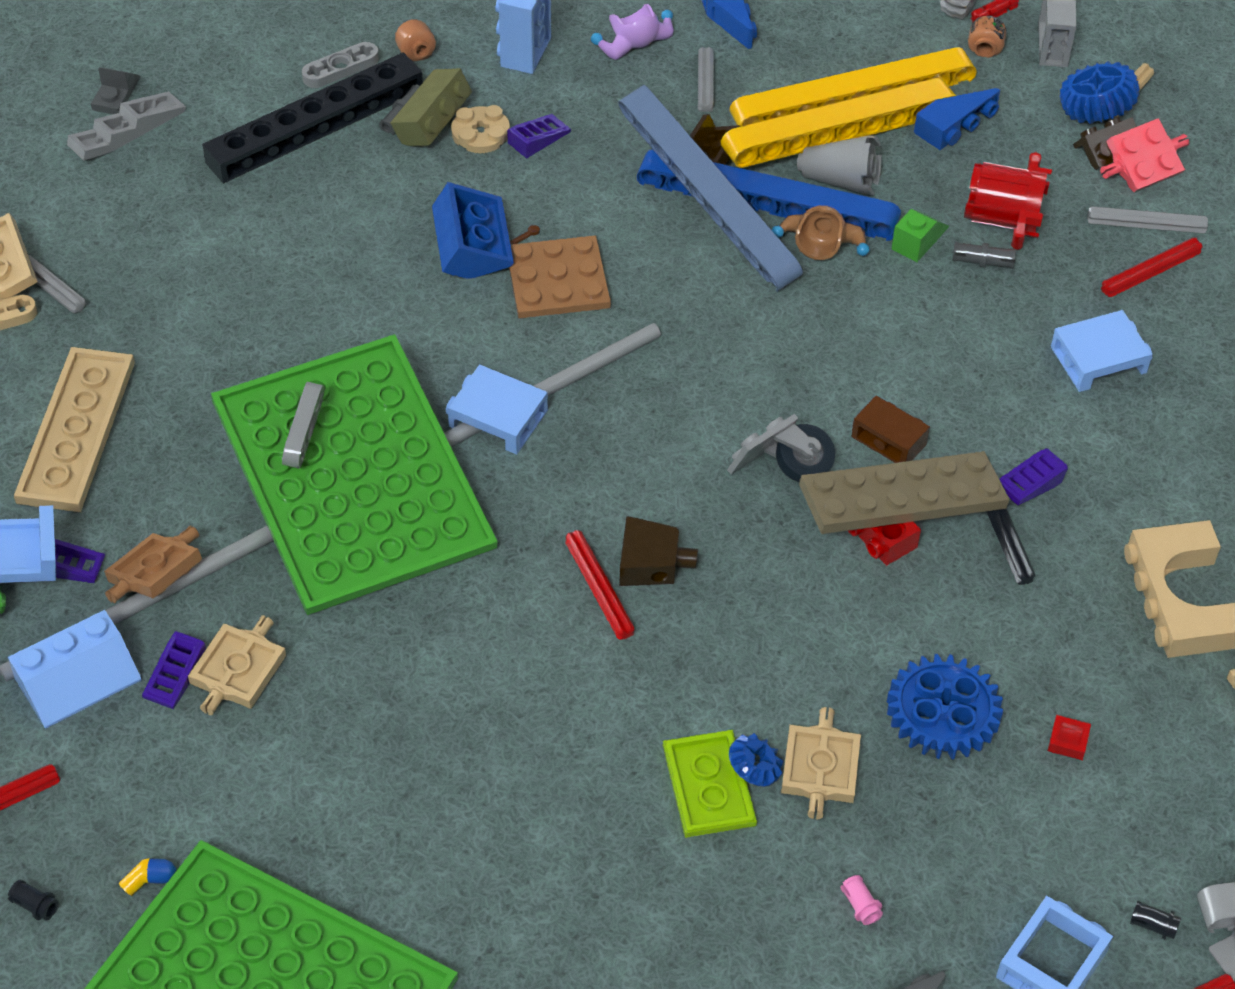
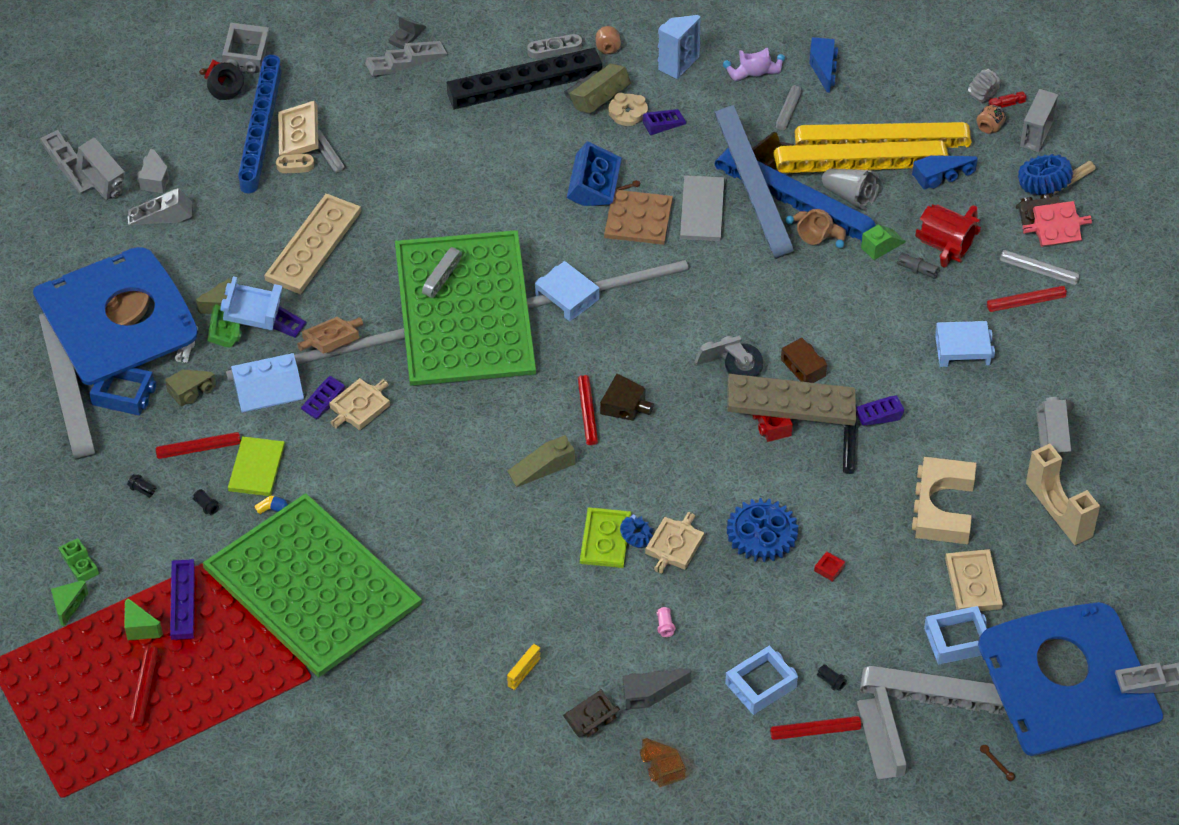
camera: 20 degrees right, 0 degrees up
(99, 814) = (256, 466): none -> lime tile
(565, 685) = (543, 461): none -> olive slope
(644, 244) = (702, 208): none -> light grey tile

